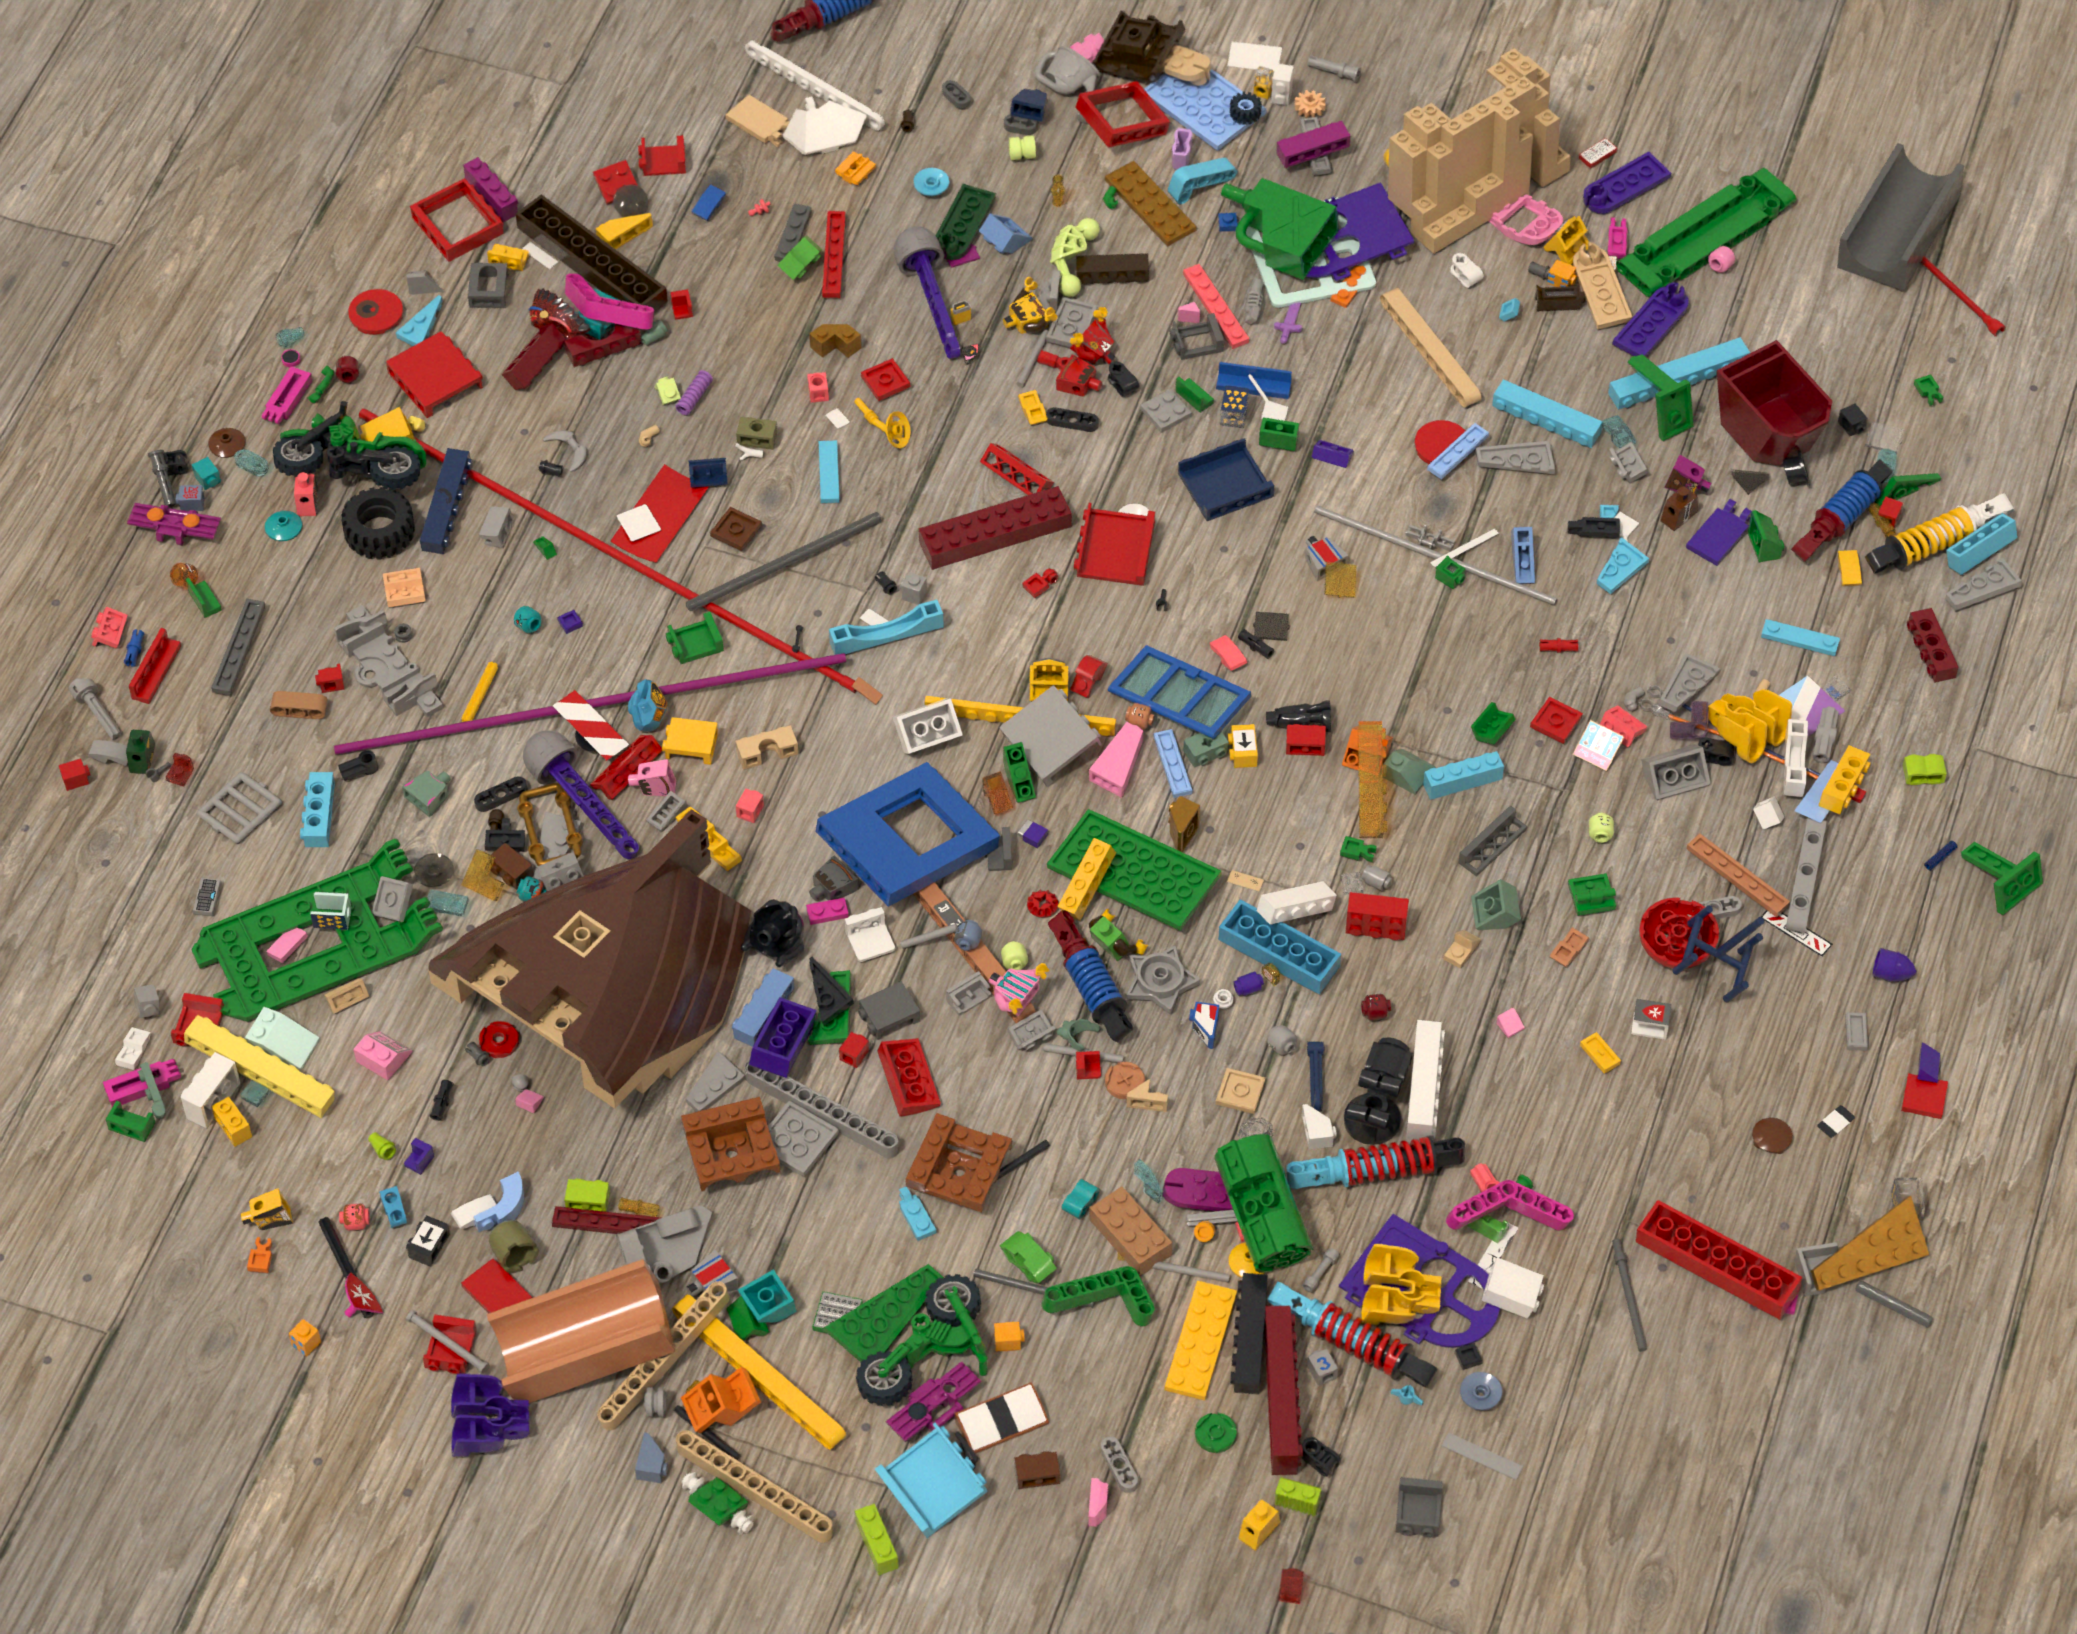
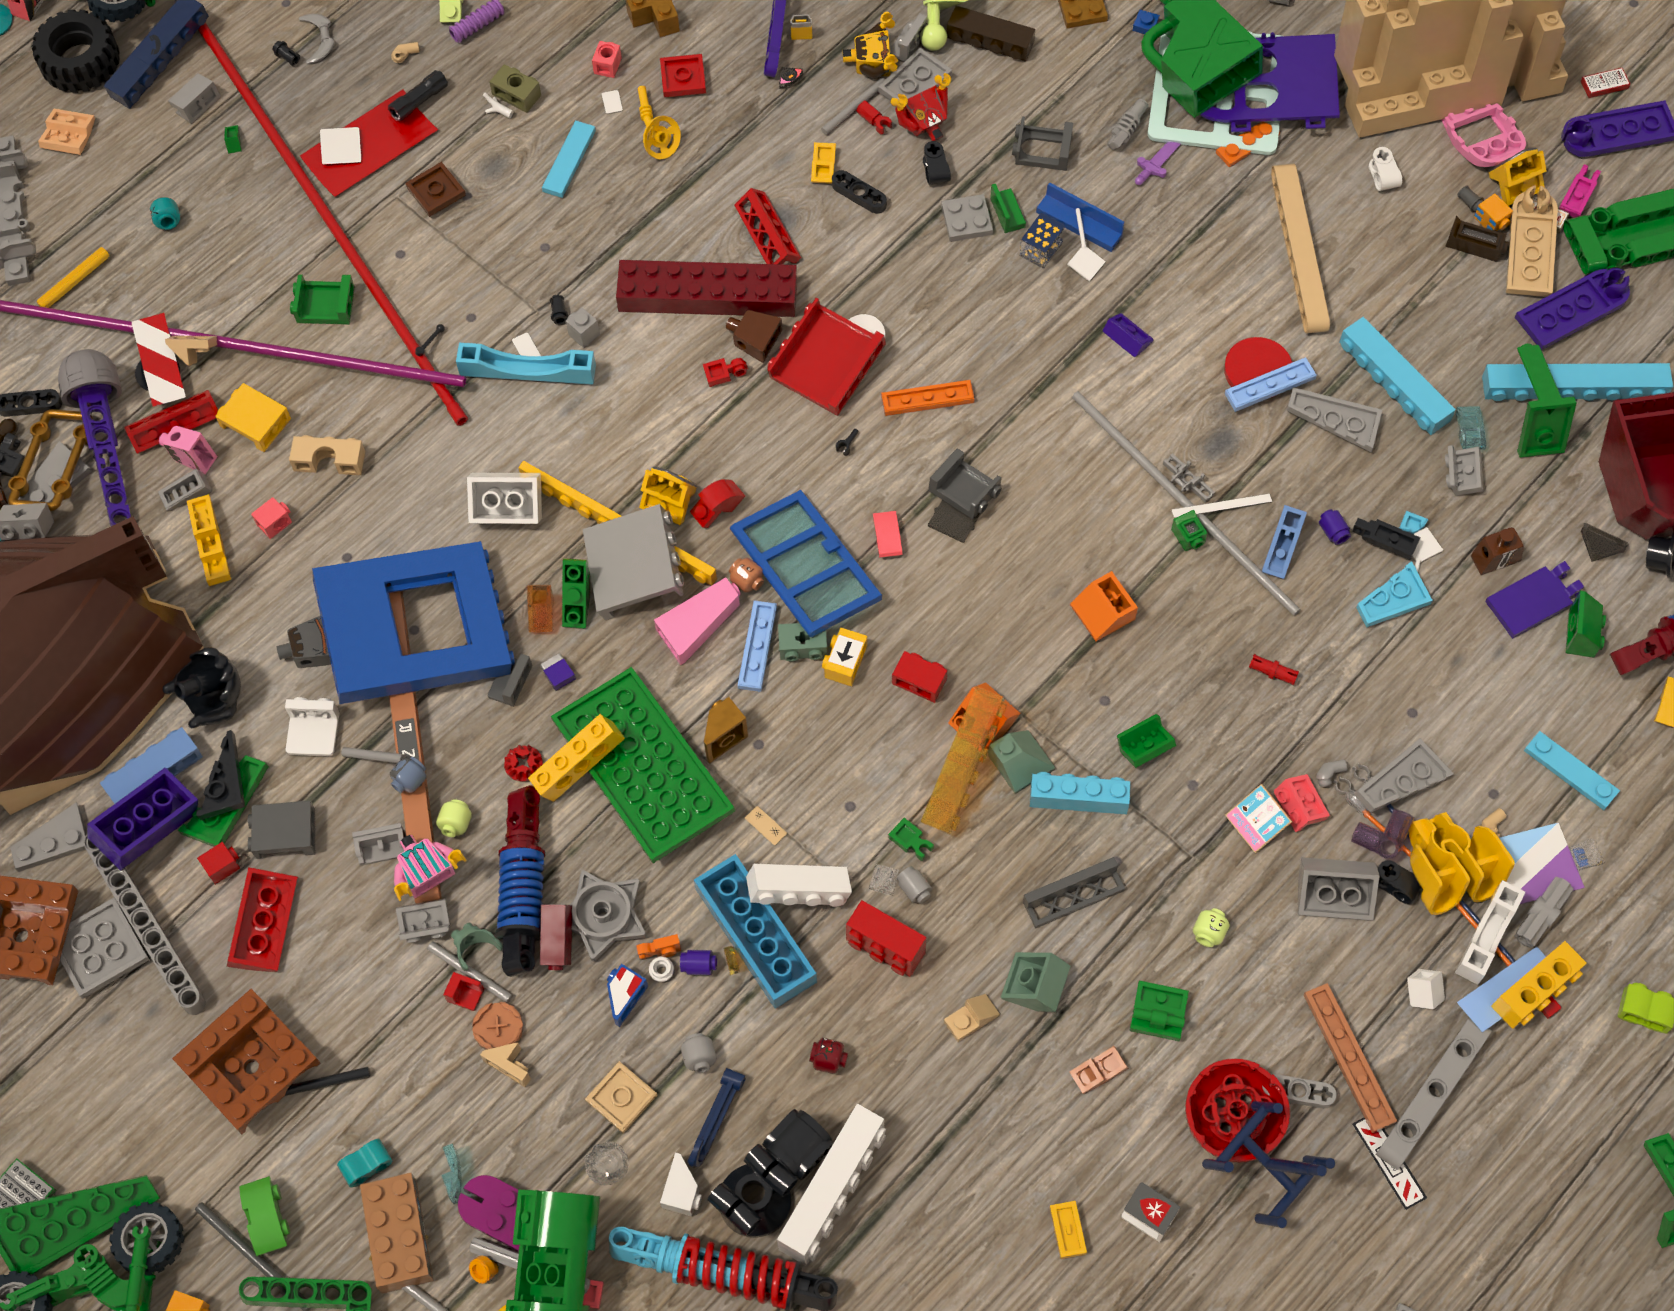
camera: 25 degrees right, 10 degrees up
(403, 628) = (42, 182): dark grey bush -> none
(570, 621) = (210, 231): dark purple tile -> none
(607, 706) = (187, 346): none -> tan slope
(647, 712) = (224, 360): dark azure helmet -> none
(676, 472) = (406, 104): none -> black axle
(708, 472) = (440, 115): dark blue hinge -> none
(783, 561) = (462, 245): dark grey axle -> none
(827, 911) = (286, 677): dark pink plate -> none
(867, 690) = (470, 429): nougat window -> none
(915, 1215) = (175, 1102): medium azure hinge -> none
(1049, 547) = (755, 333): none -> reddish brown torso
(1077, 377) = (888, 145): red torso -> none
(1112, 939) = (569, 840): torso -> none
(1137, 1002) = (556, 936): none -> brick
(1189, 313) = (1047, 113): bright pink slope -> none
(1205, 548) = (927, 397): none -> orange tile
(1215, 304) = (1084, 115): coral plate -> none
(1217, 982) = (663, 947): none -> orange plate
(1224, 480) = (989, 323): dark blue panel -> none
(1247, 638) = (924, 534): black pin -> none
(1268, 600) = (964, 485): none -> dark grey panel
(1279, 434) = (1075, 290): green brick -> none
(1301, 715) = (927, 644): black piece -> none
(1321, 552) = (1054, 458): torso -> none
(1340, 579) = (1057, 492): clear yellow piece -> none
(1416, 644) = (1104, 606): none -> orange slope
(1509, 309) = (1413, 234): medium azure plate -> none
(1510, 1022) = (979, 1142): bright pink slope -> none
(1554, 533) = (1334, 526): none -> dark purple brick
(1556, 720) = (1224, 764): red plate -> none
(1688, 475) = (1525, 515): magenta torso -> none
(1892, 966) = (1485, 1266): dark purple helmet -> none
(1940, 855) = (1617, 1133): clear blue piece -> none

